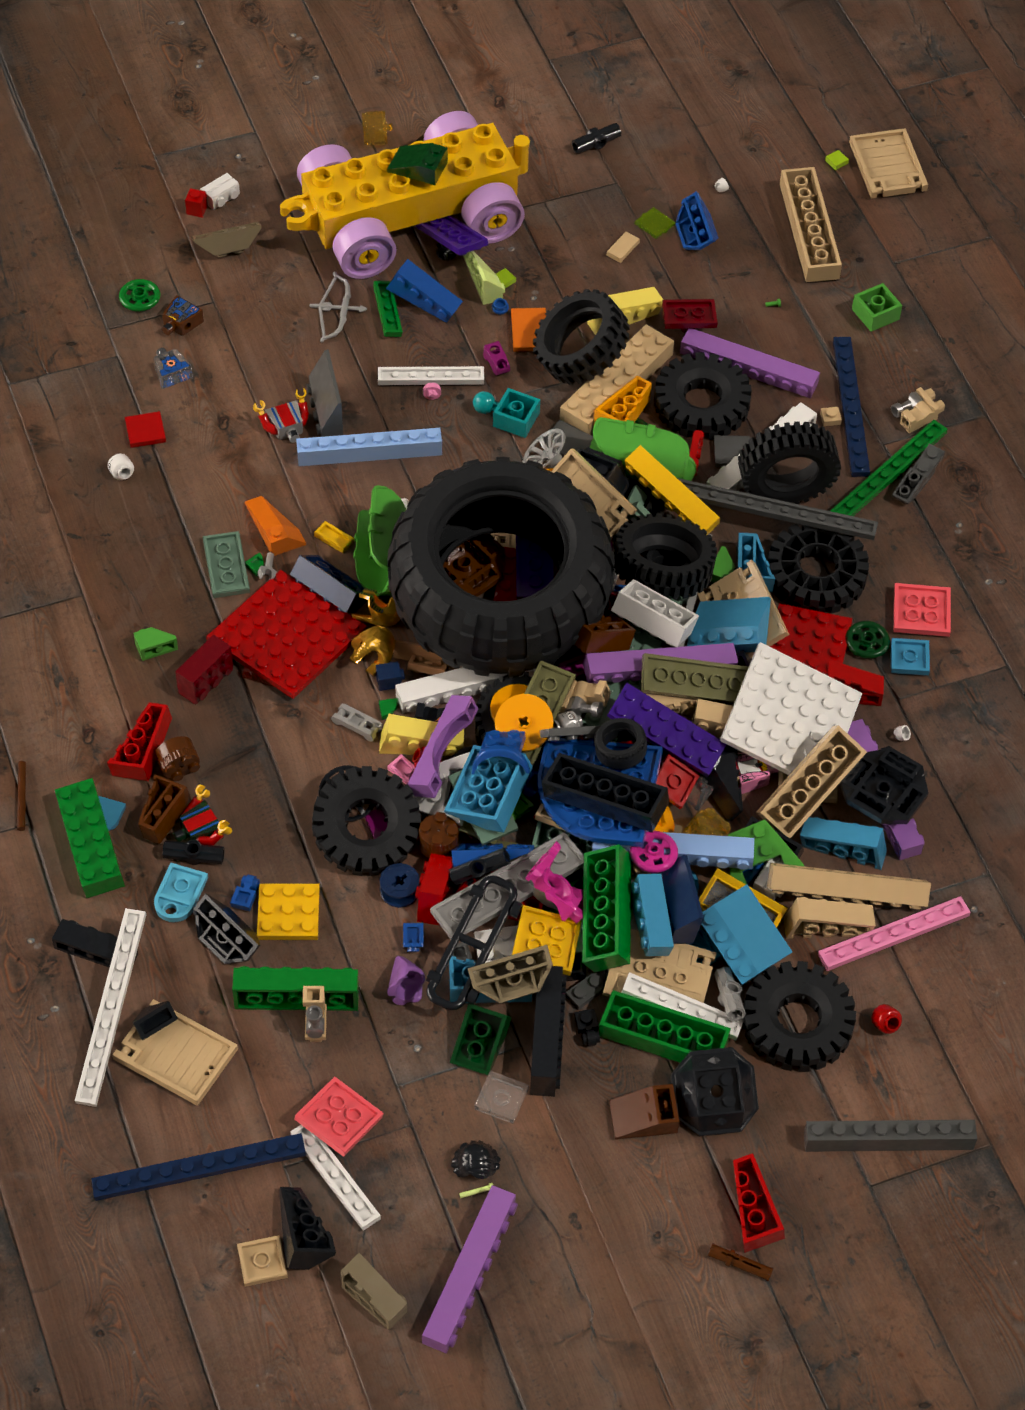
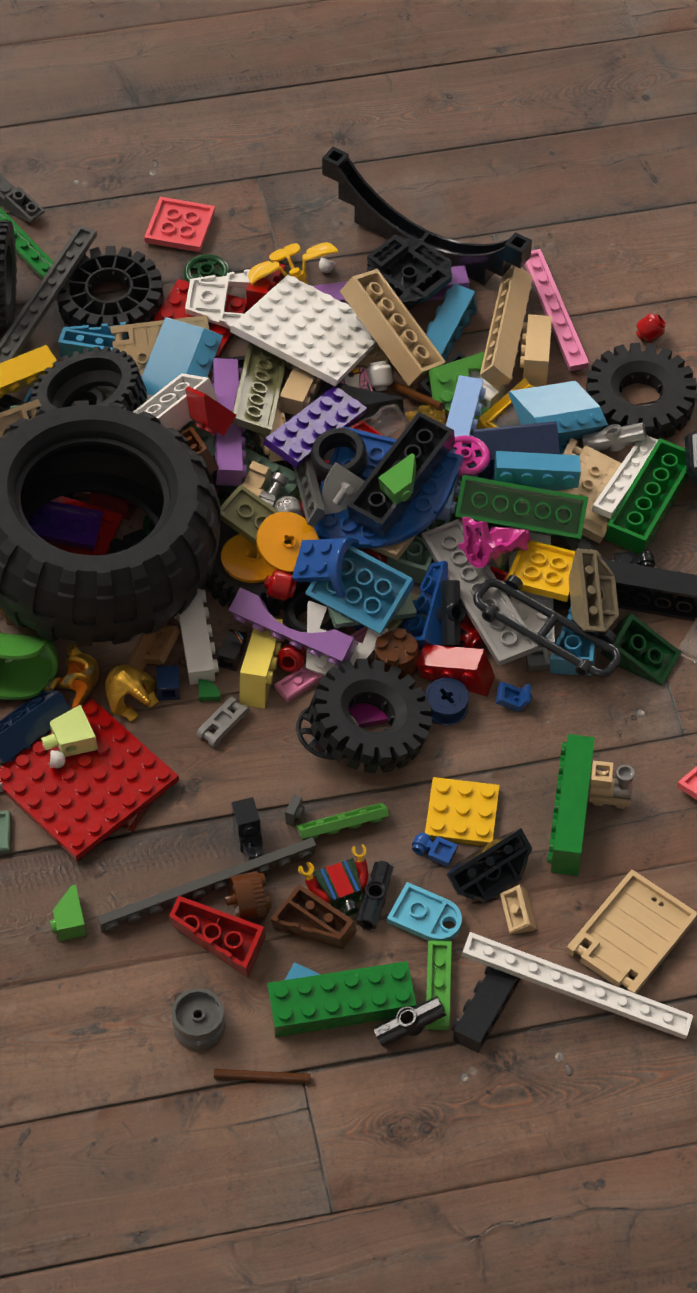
camera: 80 degrees left, 0 degrees up
(62, 740) = (198, 1019): none -> dark grey wheel
(70, 887) = (422, 1016): none -> black piece
(109, 908) = (439, 979): none -> bright green plate
(154, 1018) = (594, 944): black slope -> none
(186, 726) = (198, 888): none -> dark grey plate
(193, 965) = (518, 910): none -> tan slope
(204, 669) = (128, 858): dark red brick -> none
(245, 749) = (247, 827): none -> black hinge
(265, 820) = (350, 819): none -> bright green plate
(271, 783) = (294, 810): none -> dark grey plate
(293, 605) = (57, 759): none -> white hinge
(320, 611) = (71, 733): none -> yellowish green torso
(405, 982) = (563, 708): medium lavender hat -> none
(481, 726) = (280, 585): none -> red head
(583, 783) = (399, 480): none -> bright green slope
(584, 747) = (339, 489): none -> light grey shield
(646, 633) = (208, 413): none -> red slope
(738, 824) = (418, 396): none -> reddish brown bar
(765, 788) = (380, 375): none -> white head
(828, 640) = (209, 297): none -> white wing
(879, 705) = (266, 268): none -> yellow plant
(910, 656) = (235, 243): dark azure plate -> none
(930, 853) = (378, 216): none -> black arch

